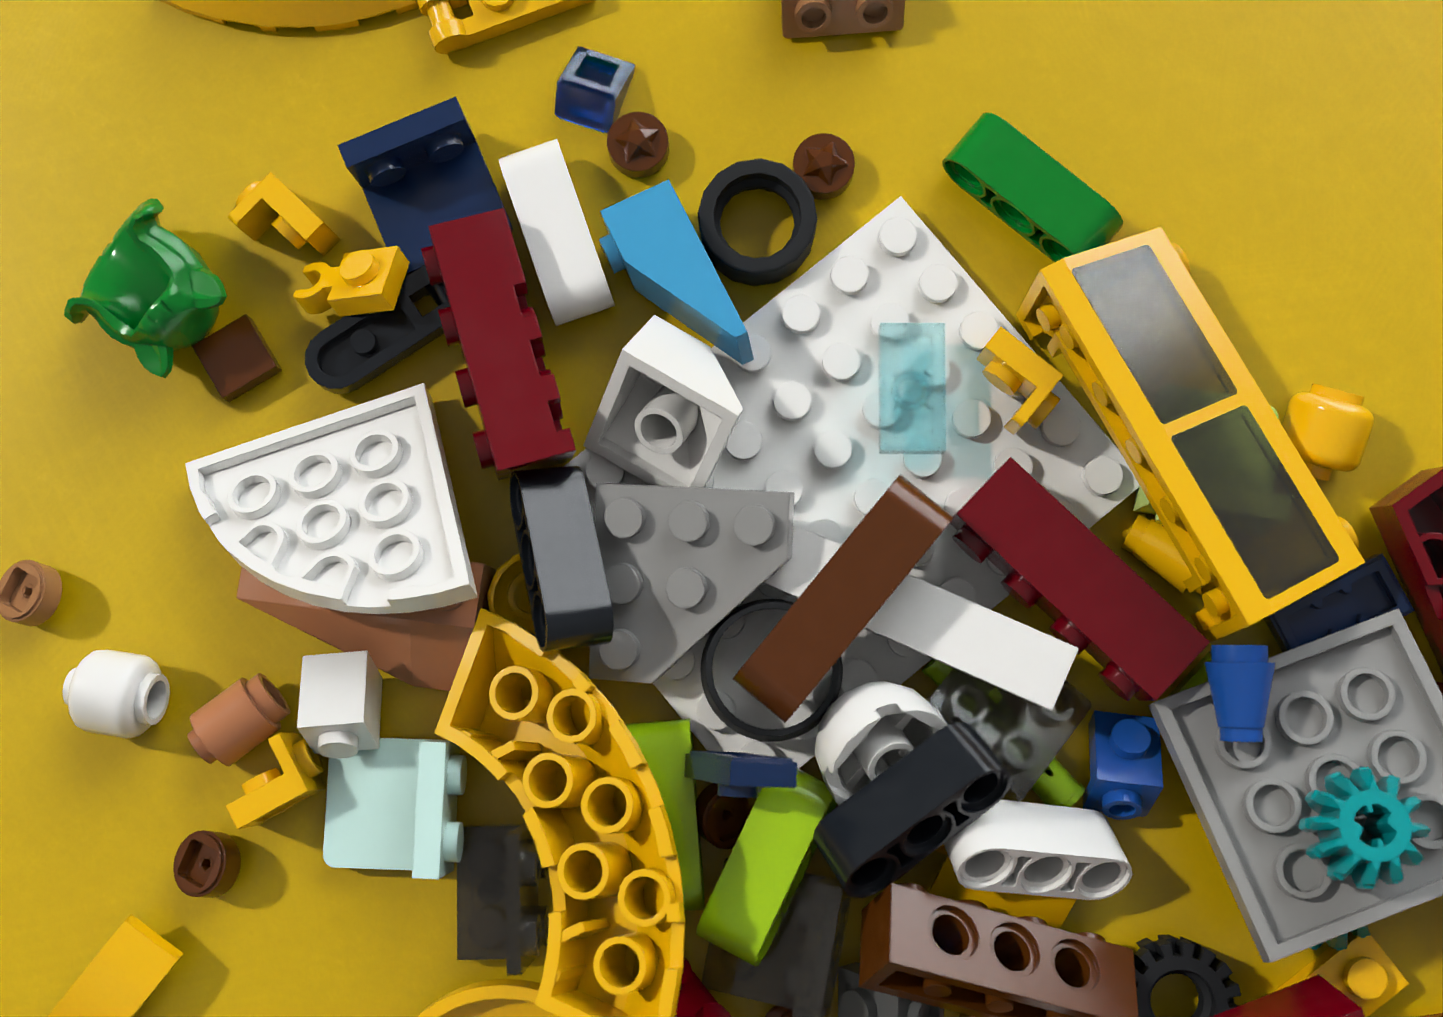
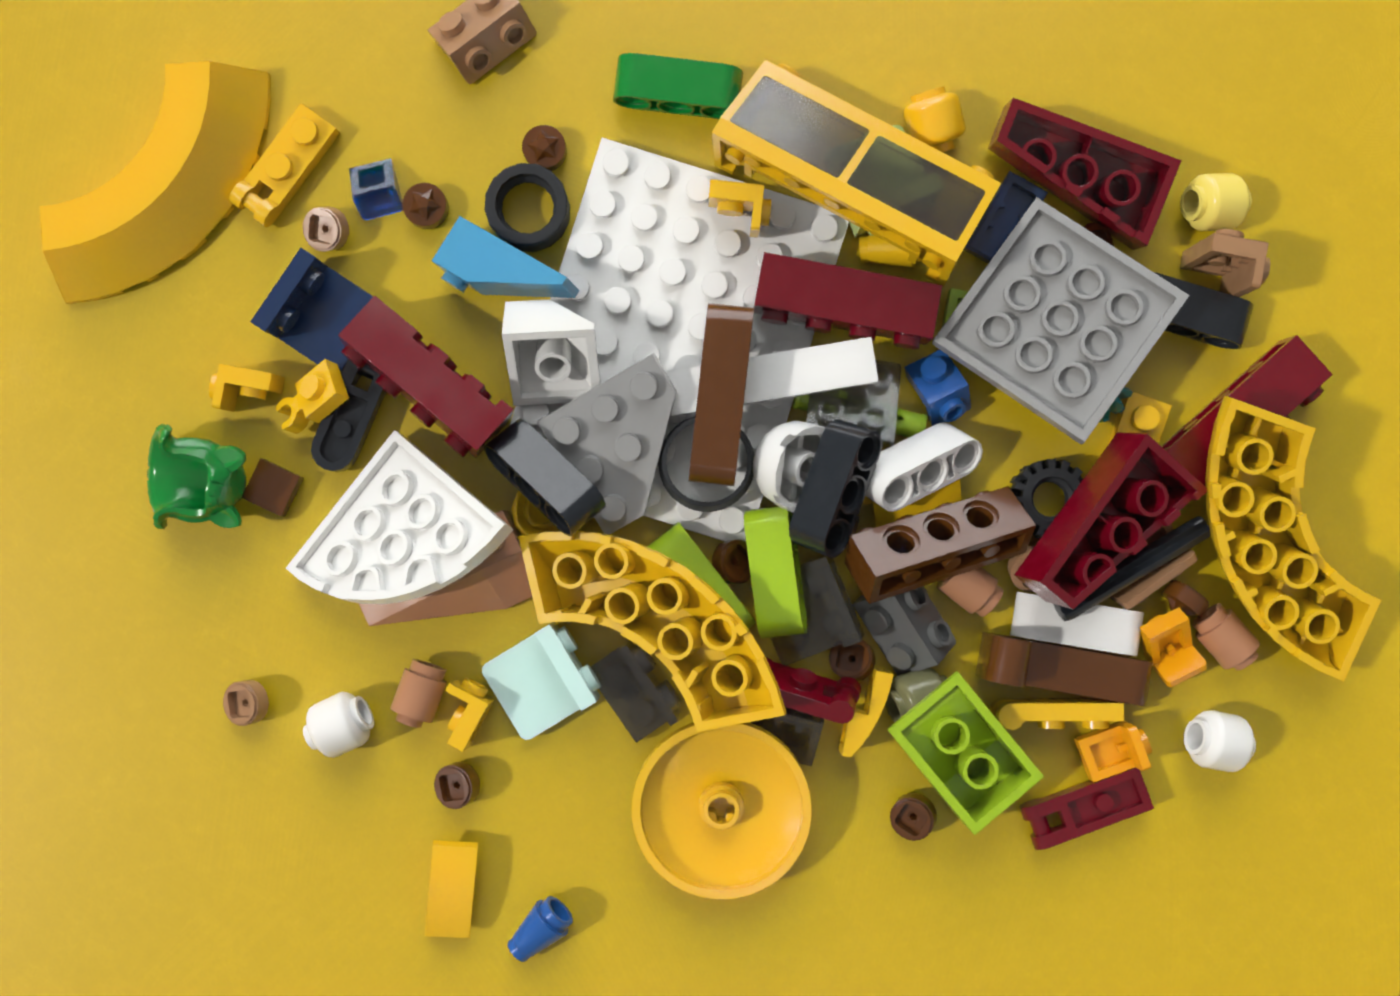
camera: 45 degrees left, 5 degrees up
(340, 703) = (472, 644): white brick -> none
(503, 97) = (325, 228): none -> medium nougat tile
(556, 232) = (412, 289): white beam -> none
(740, 772) = (726, 531): dark blue plate -> none
(912, 388) = (682, 248): clear light blue plate -> none
(1240, 690) = (975, 301): blue cone -> none
(1386, 822) = (1099, 323): teal gear -> none

